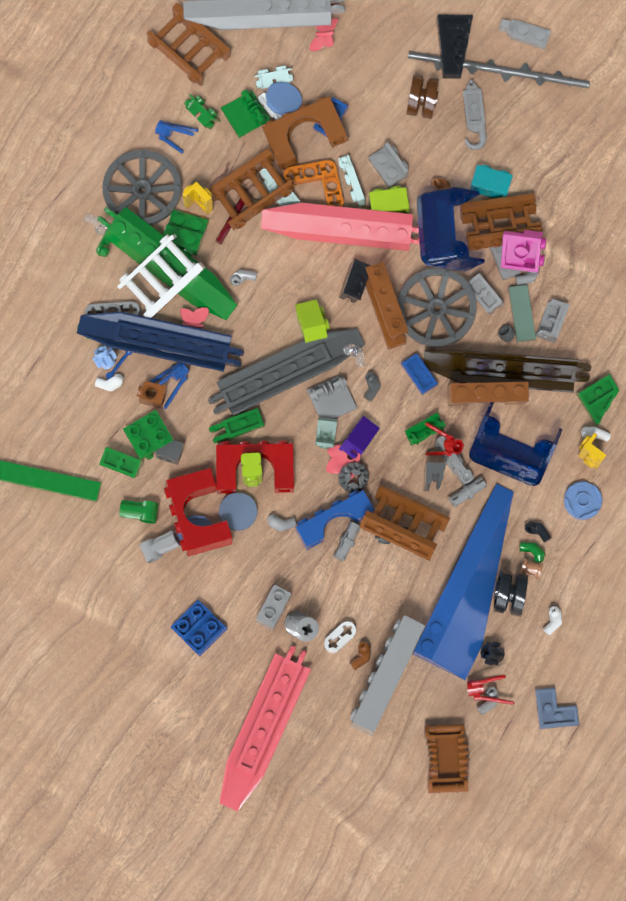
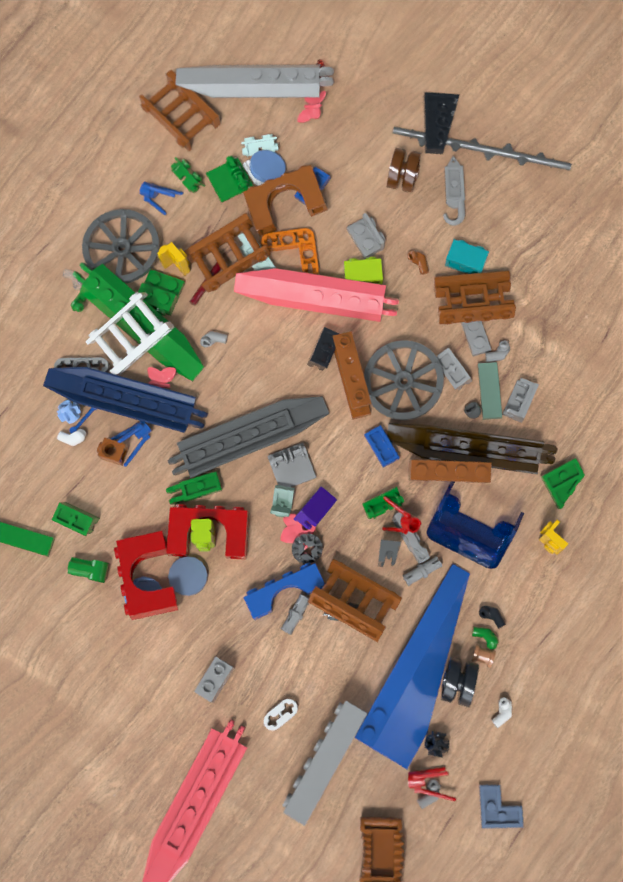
camera: 15 degrees right, 0 degrees up
(148, 435) = (103, 493): green hinge -> none
(155, 548) = (101, 608): light grey piece -> none
(171, 452) = (123, 509): dark grey brick -> none
(198, 628) = (137, 694): blue slope -> none
(280, 525) = (228, 592): light grey arm -> none
(301, 626) = (240, 702): light grey piece -> none
(311, 320) = (276, 386): lime brick -> none
(351, 179) = (327, 247): light aqua hinge -> none
(356, 352) = (319, 420): clear arm -> none
(363, 655) = (303, 736): dark orange arm -> none
(373, 385) = (334, 454): dark grey arm -> none
(437, 229) = (408, 302): clear blue windscreen -> none
(523, 251) = (494, 327): plate -> none
(525, 33) = (510, 114): light grey hinge -> none
(582, 500) = (540, 587): medium blue tile -> none
(601, 434) = (553, 516): white arm -> none

